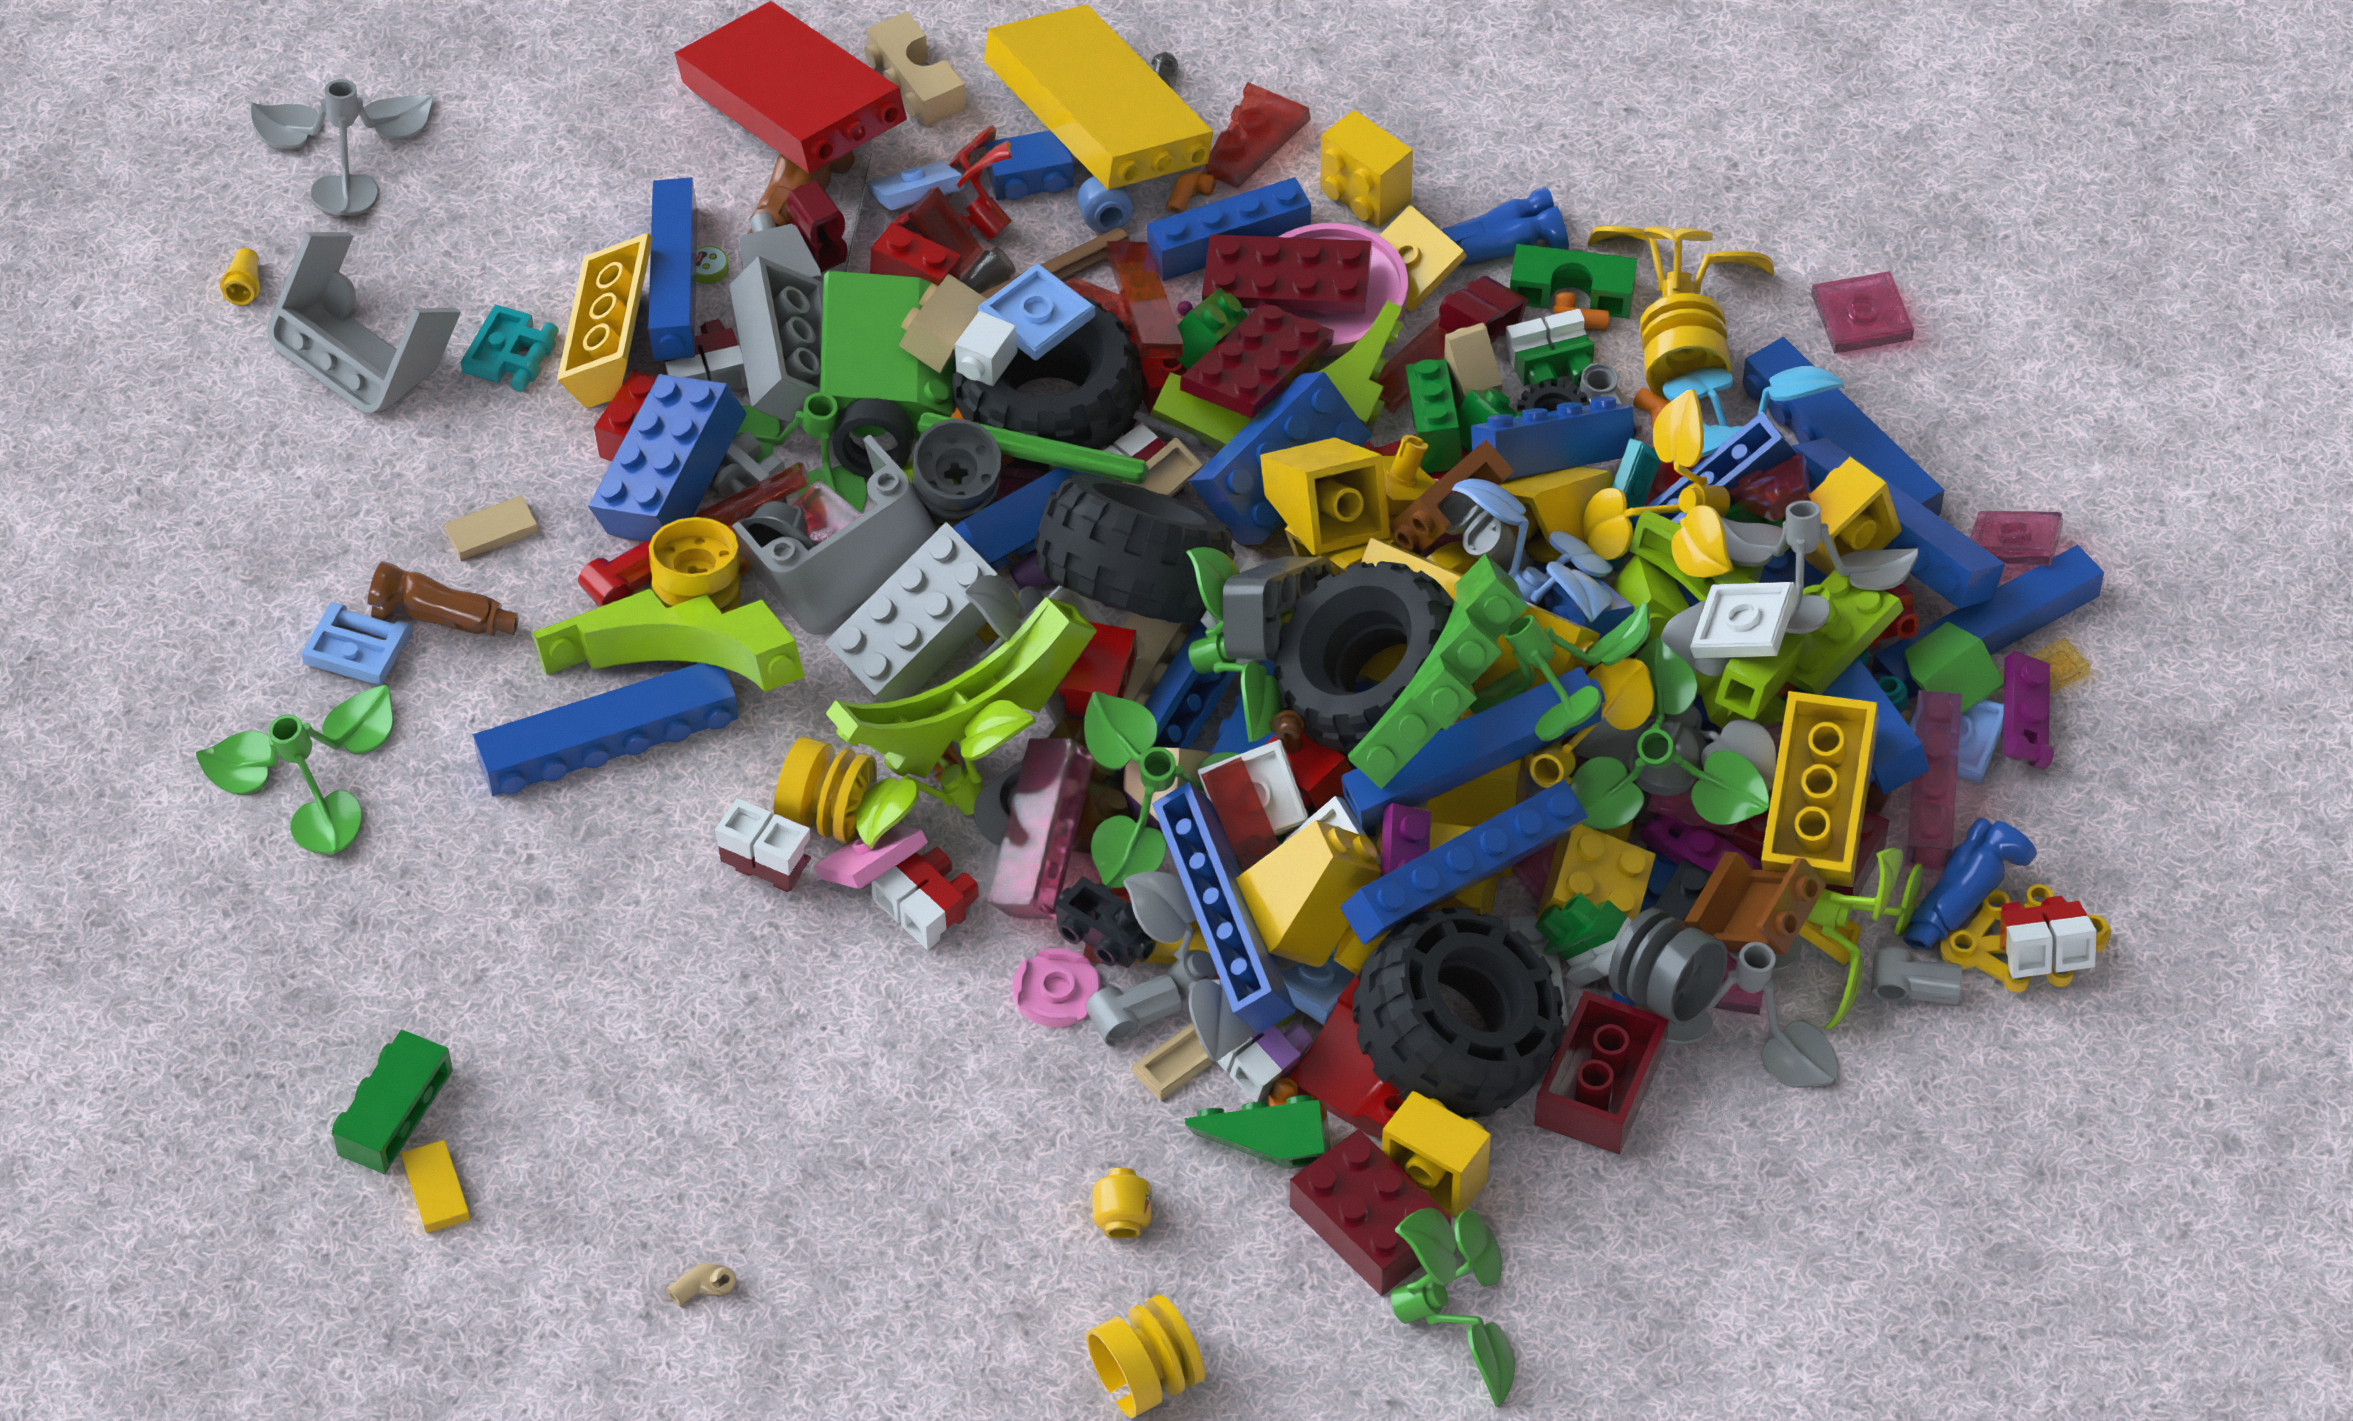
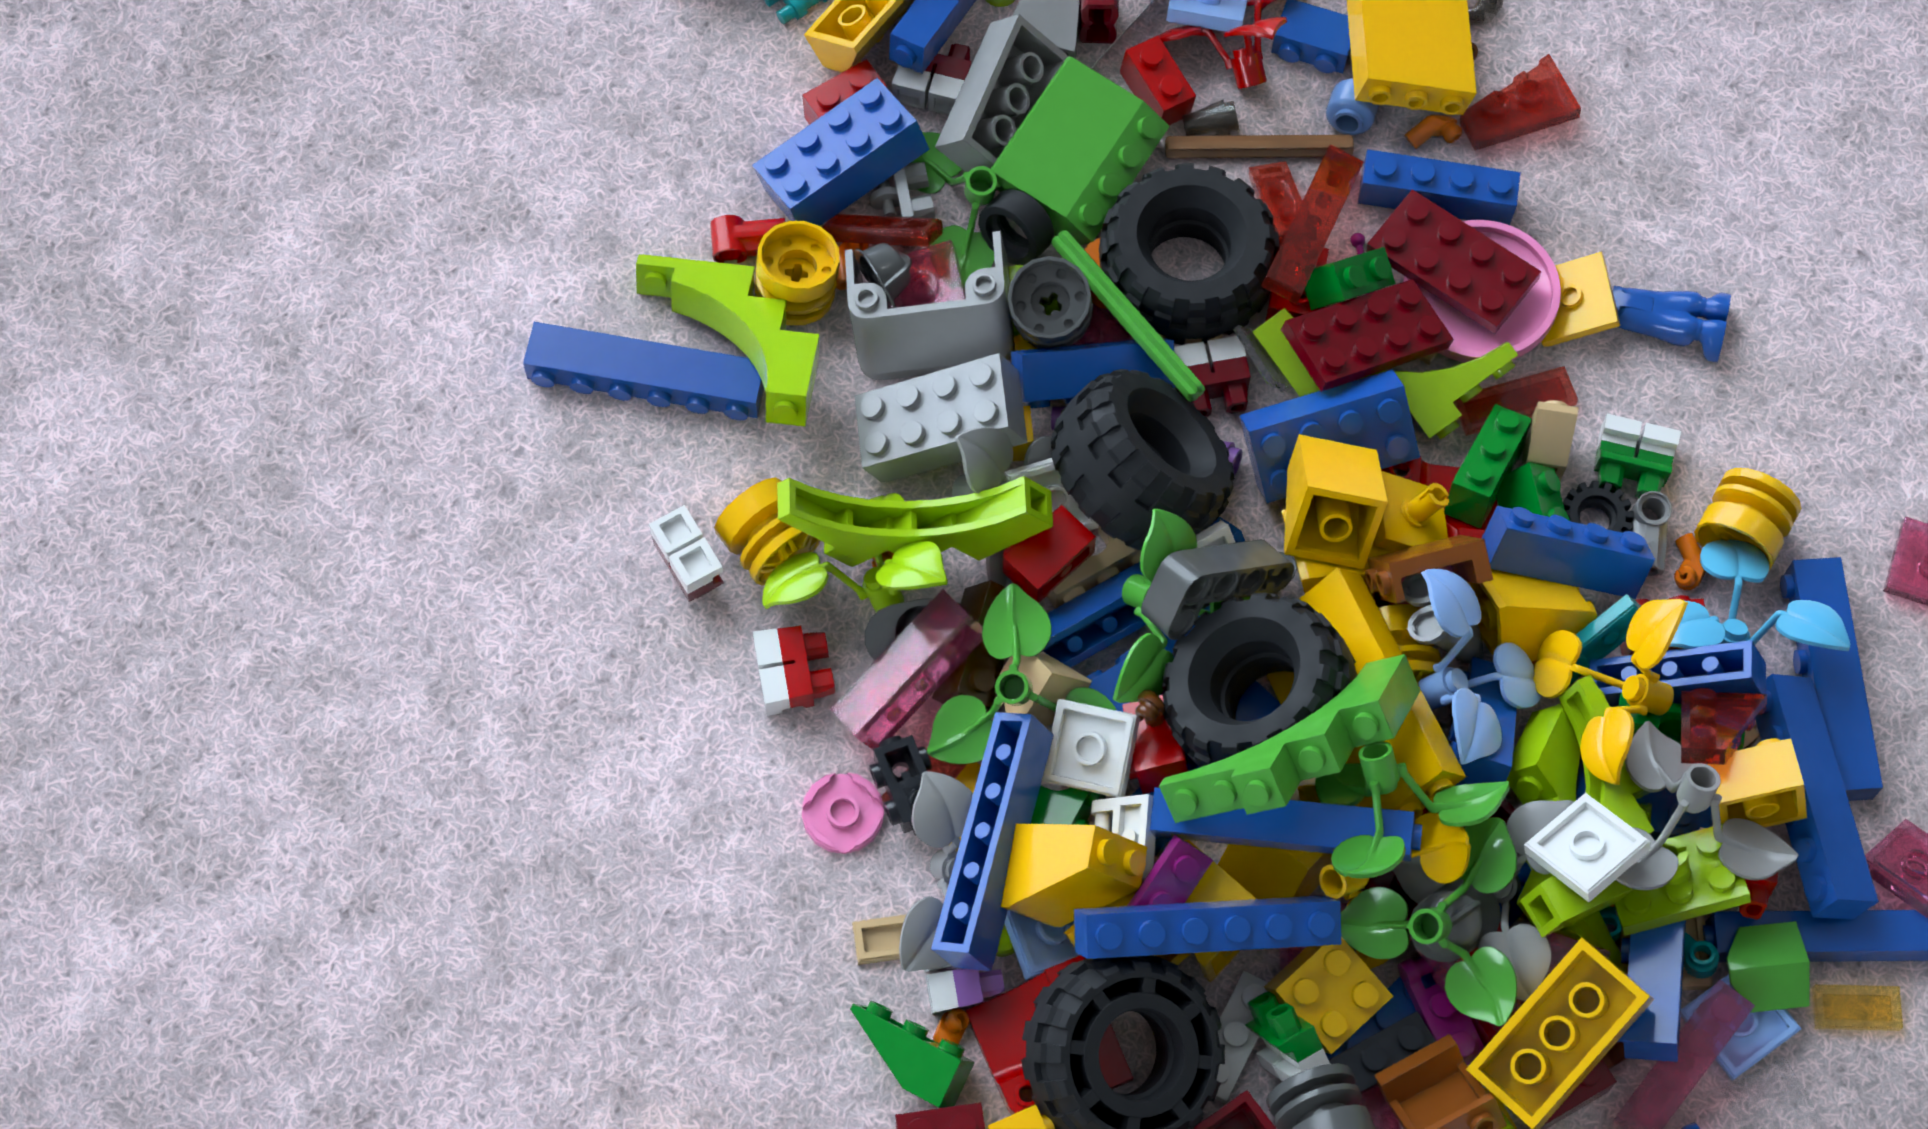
camera: 30 degrees right, 15 degrees up
(331, 822) = (362, 237): bright green plant -> none
(352, 652) = (501, 191): light blue plate -> none
(392, 1101) = (273, 610): green brick -> none
(435, 1186) = (262, 702): yellow tile -> none
(436, 603) = (576, 171): dark orange piece -> none
(491, 528) = (678, 136): tan tile -> none
(702, 1279) = (403, 909): tan arm -> none
(859, 865) = (751, 619): bright pink plate -> none
(940, 322) = (1128, 157): tan brick -> none
(941, 224) = (1201, 62): clear red tile -> none
(985, 348) = (1137, 207): white brick -> none
(1041, 309) = (1203, 194): light blue plate -> none
(1122, 1203) = (760, 1045): yellow head -> none
(1125, 1011) = (879, 870): light grey piece -> none
(1171, 469) = (1230, 394): tan tile -> none
(1241, 812) = (1066, 767): clear red tile -> none
(1366, 168) = (1587, 195): yellow brick -> none
(1485, 303) = (1599, 384): dark red brick -> none
(1593, 318) = (1676, 419): orange arm -> none
(1603, 277) = (1677, 373): green arch -> none
(1679, 281) = (1784, 454): yellow plant -> none
(2027, 710) = (1813, 1042): magenta plate -> none

